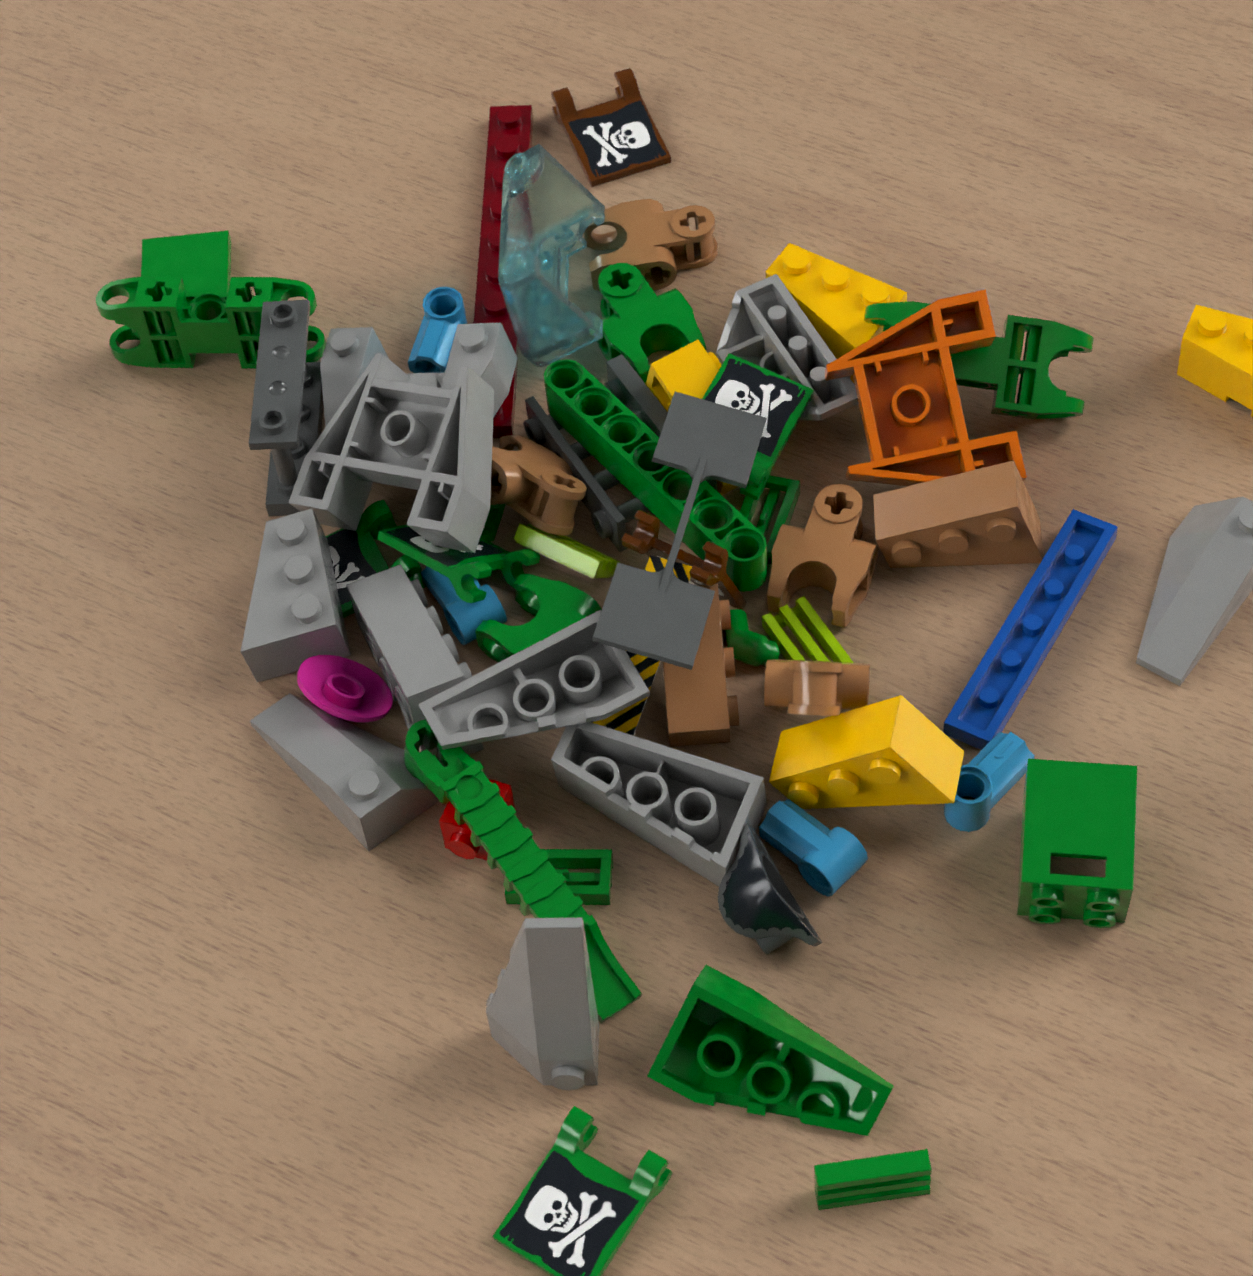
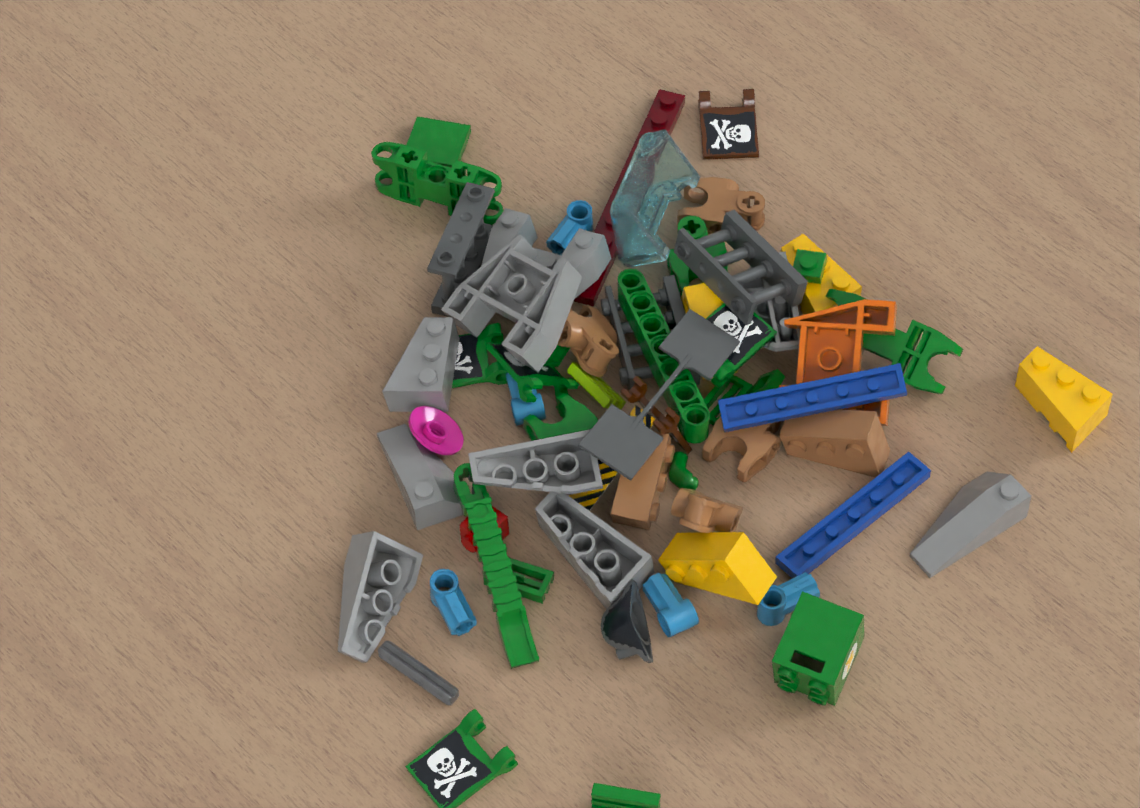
camera: 15 degrees right, 0 degrees up
(334, 956) = (374, 584): none -> light grey wedge
(407, 641) = (481, 413): light grey wedge -> none
(457, 1076) = (418, 672): none -> flat silver axle
(468, 950) = (451, 603): none -> dark azure piece
(548, 1004) = (480, 648): light grey wedge -> none
(739, 284) = (756, 251): none -> dark grey fence
(755, 1056) = (586, 710): green wedge -> none
(790, 618) = (713, 466): lime tile -> none
(821, 284) = (810, 265): none -> green plate
(821, 472) = (768, 381): none -> green plate
(908, 469) = (812, 397): none -> blue plate

